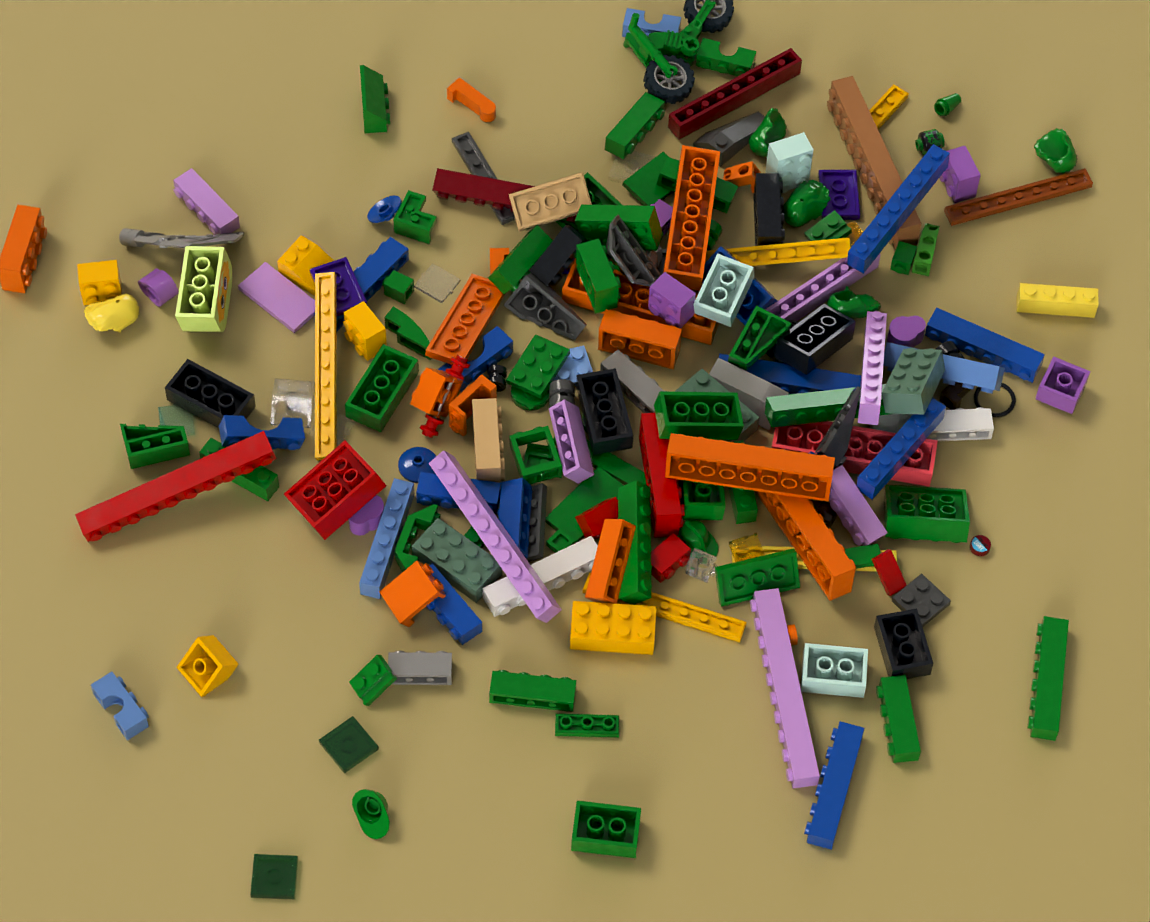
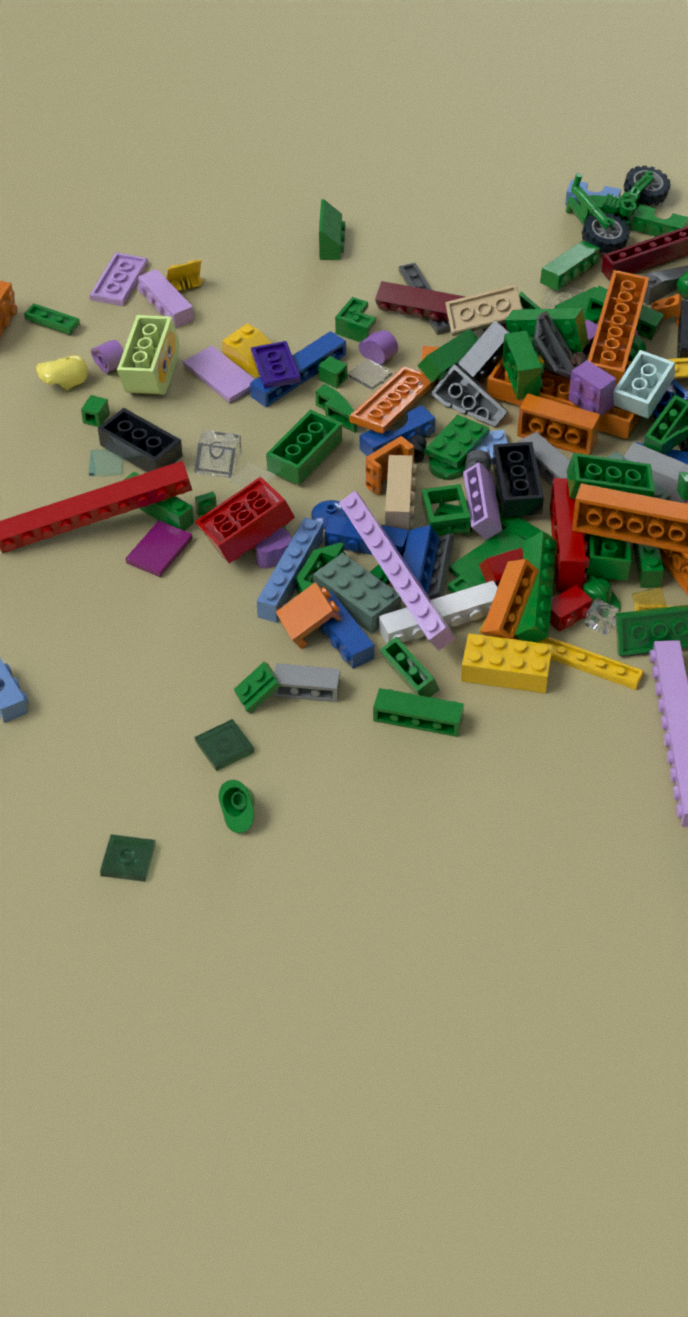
camera: 10 degrees right, 10 degrees down
(87, 240) = (52, 318): none -> green plate
(99, 281) = (54, 342): yellow brick -> none
(139, 238) = (99, 318): light grey piece -> none
(150, 178) = (119, 279): none -> lavender tile
(154, 444) = (79, 475): green wedge -> none
(155, 359) = (95, 411): none -> green brick
(207, 664) = (95, 661): yellow slope -> none
(227, 171) = (185, 273): none -> yellow hinge
(249, 523) = (159, 548): none -> magenta tile
(286, 435) = (205, 477): blue arch -> none
(289, 465) = (205, 503): none -> green plate
(325, 364) = (253, 417): yellow plate -> none
(364, 330) = (293, 397): yellow brick -> none
(384, 209) = (328, 314): blue dish -> none
(436, 392) = (354, 447): orange brick -> none
(443, 251) = (379, 346): none -> medium lavender piece
(472, 99) = (421, 239): orange leg -> none
(519, 645) = (409, 668): none -> green brick
(575, 725) = (470, 749): green tile -> none
(606, 829) = (479, 842): green brick -> none

